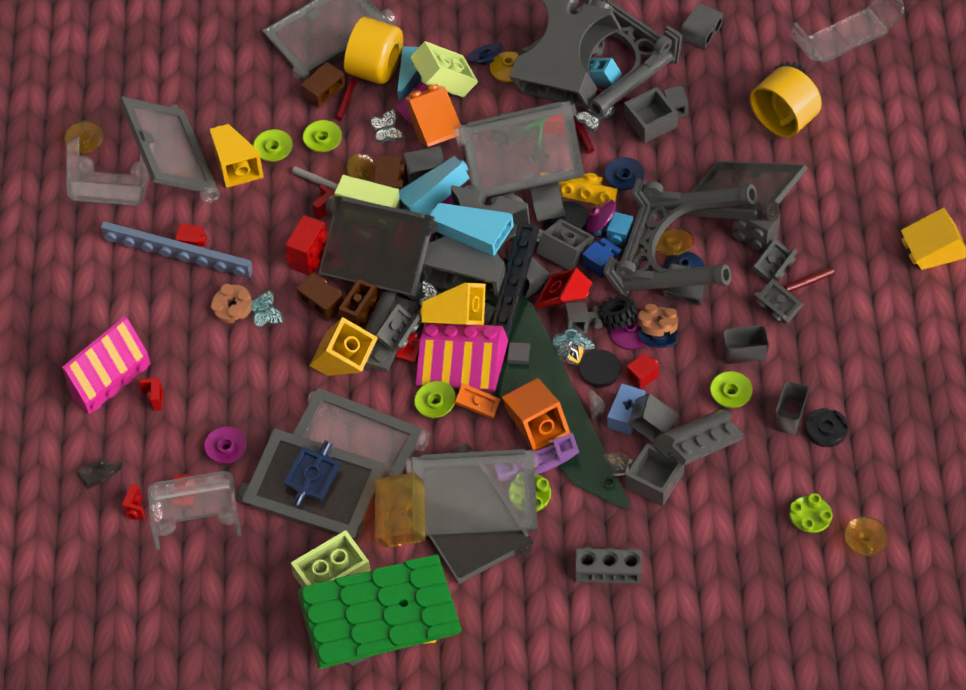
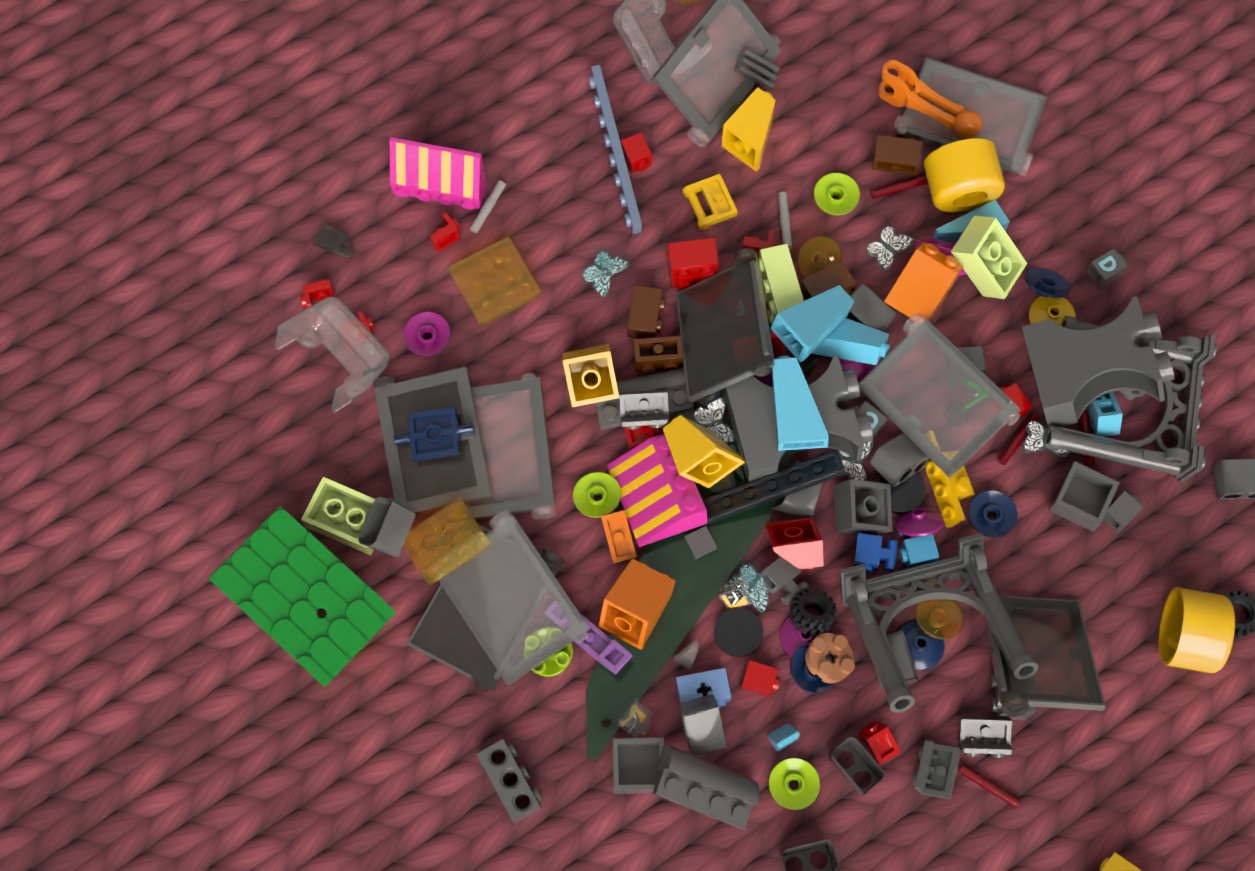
camera: 55 degrees right, 15 degrees up
(154, 358) = (487, 206): none -> light grey piece
(187, 126) = (760, 61): none -> dark grey tile
(217, 381) = (494, 281): none -> clear yellow plate
(231, 293) = (588, 226): nougat plate -> none
(266, 209) = (717, 198): none -> yellow plate
(273, 145) = (794, 147): lime dish -> none
(286, 48) = (914, 94): none -> orange piece
(351, 532) = (387, 526): none -> dark grey piece
(414, 187) = (811, 321): none -> medium azure slope
(500, 16) = (1107, 268): none -> dark grey brick
(693, 380) = (783, 736): none -> medium azure slope
(734, 320) = (879, 741): none -> red bracket

